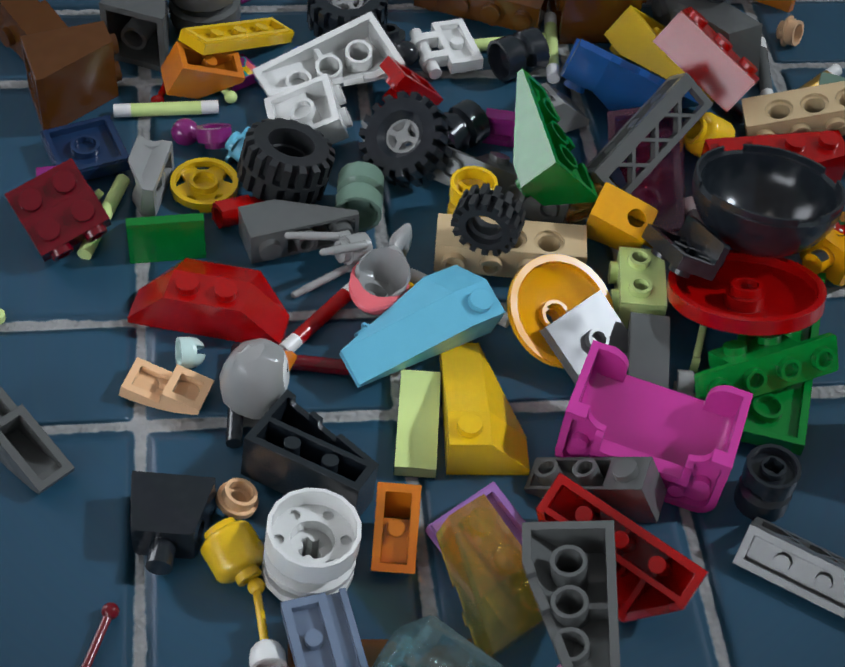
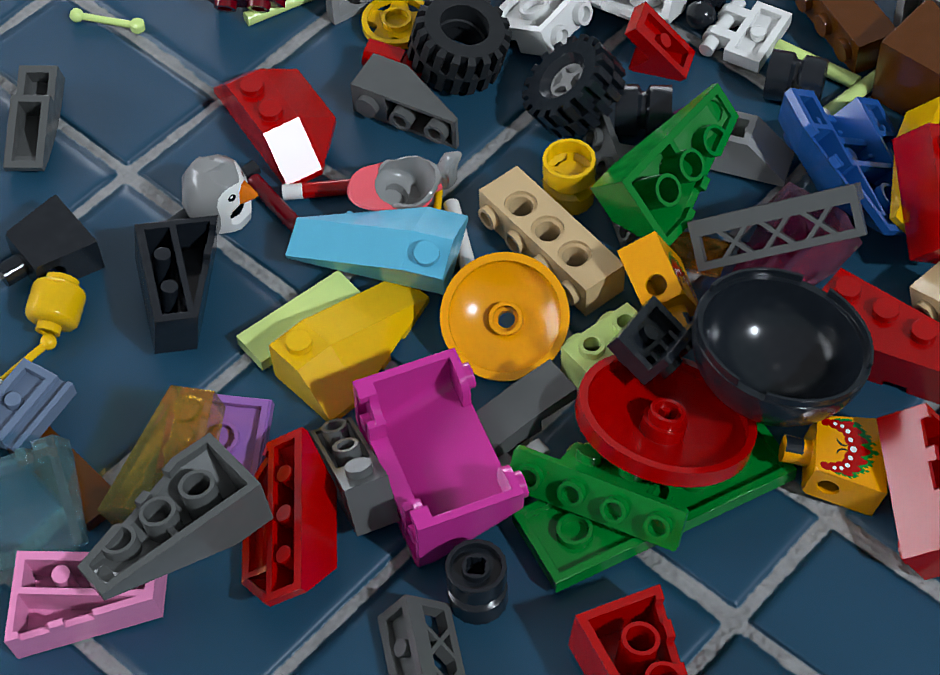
camera: 55 degrees right, 5 degrees up
(166, 238) = (311, 41): green slope -> none
(169, 391) = (166, 154): light nougat slope -> none
(186, 352) = (213, 141): light aqua hinge -> none
(237, 498) = (112, 262): light nougat plate -> none
(310, 544) = (90, 338): white wheel -> none
(347, 249) = (423, 144): light grey plant -> none
(361, 189) = (487, 109): sand green wheel -> none
(396, 527) = (173, 363): orange slope -> none
(495, 206) = (518, 193): black tyre -> none
(576, 329) = (500, 352): plate -> none
(707, 127) = (872, 265): yellow head -> none

